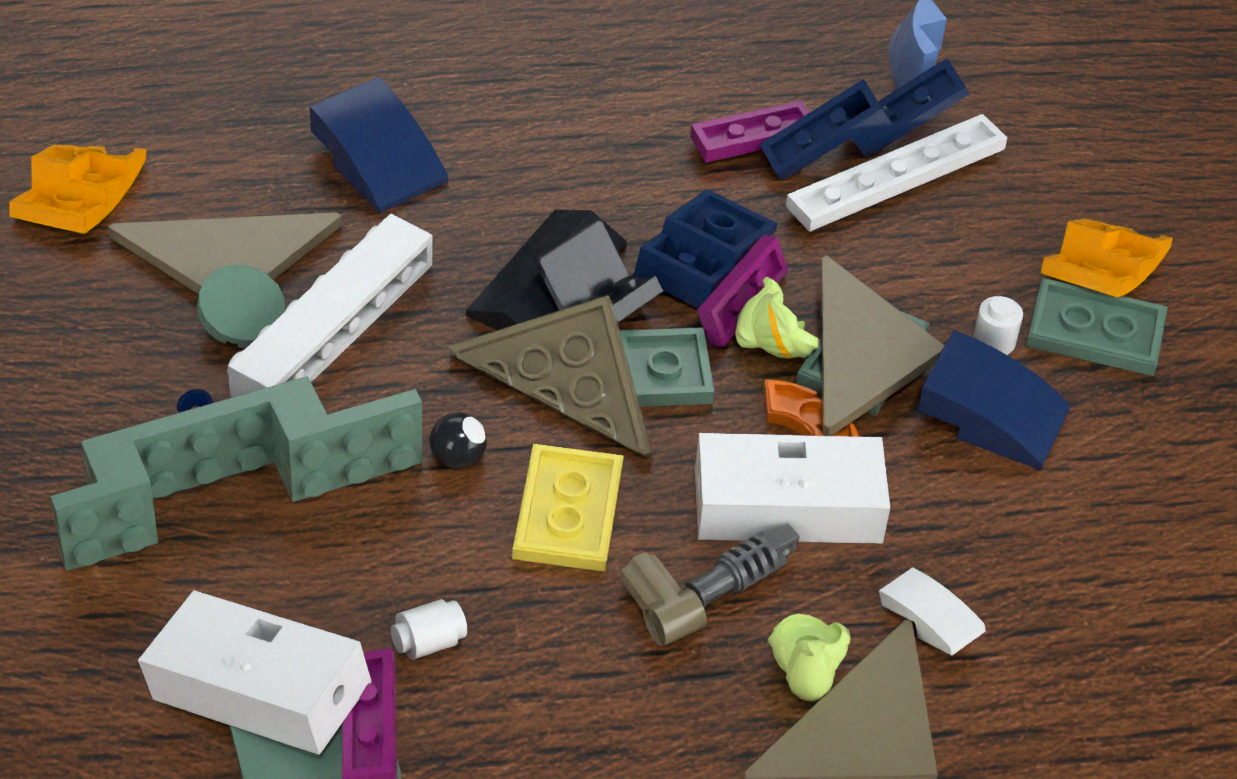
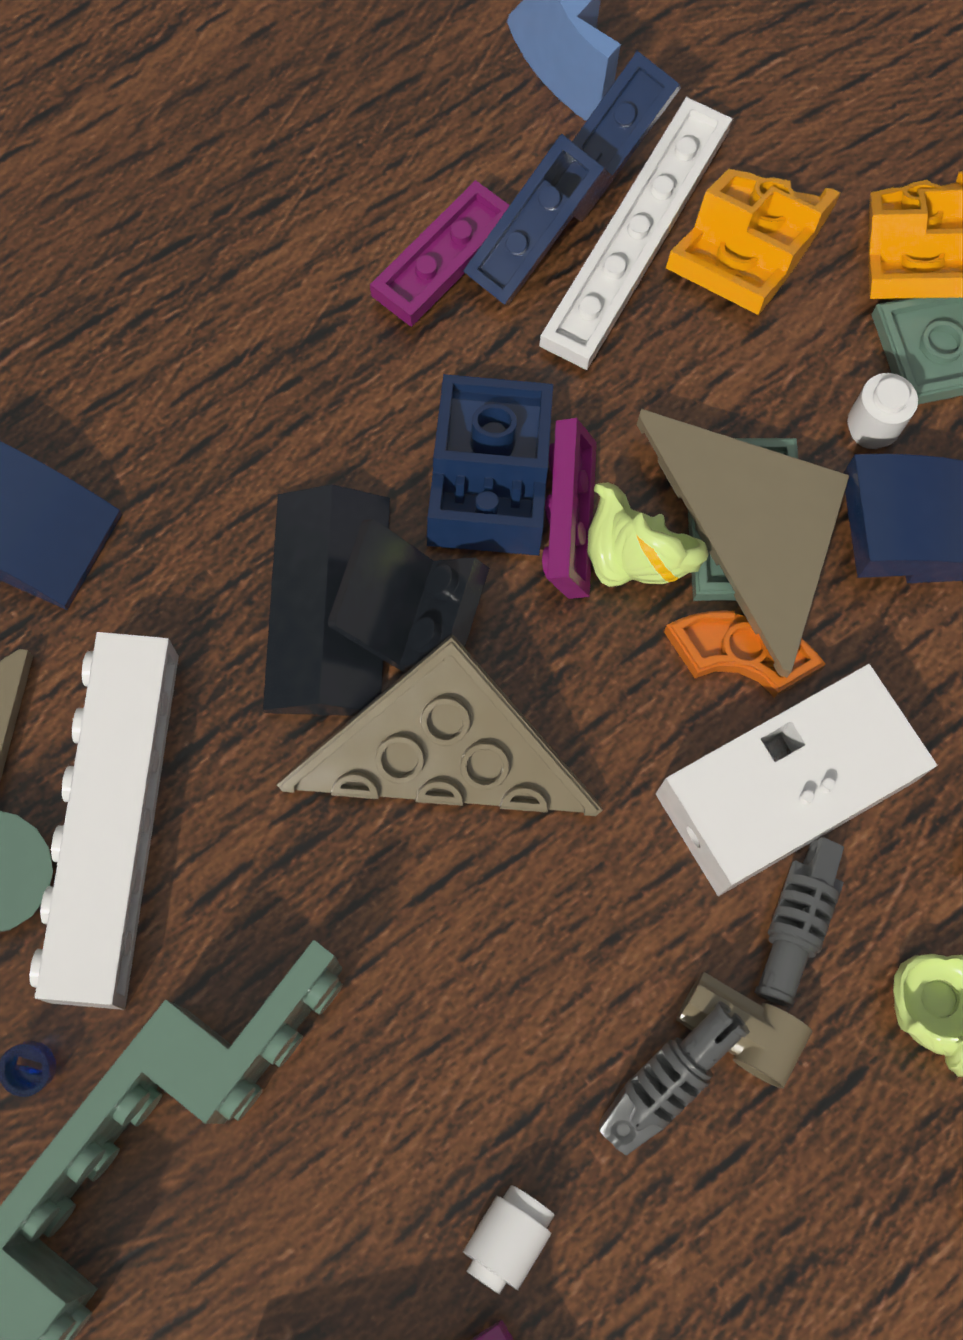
camera: 30 degrees left, 25 degrees up
(458, 440) = (375, 928): black piece -> none
(568, 507) = (553, 942): light yellow tile -> none
(591, 594) = (670, 1080): none -> dark grey hinge
(669, 366) = (546, 662): sand green tile -> none
(979, 207) = (750, 237): none -> light orange slope

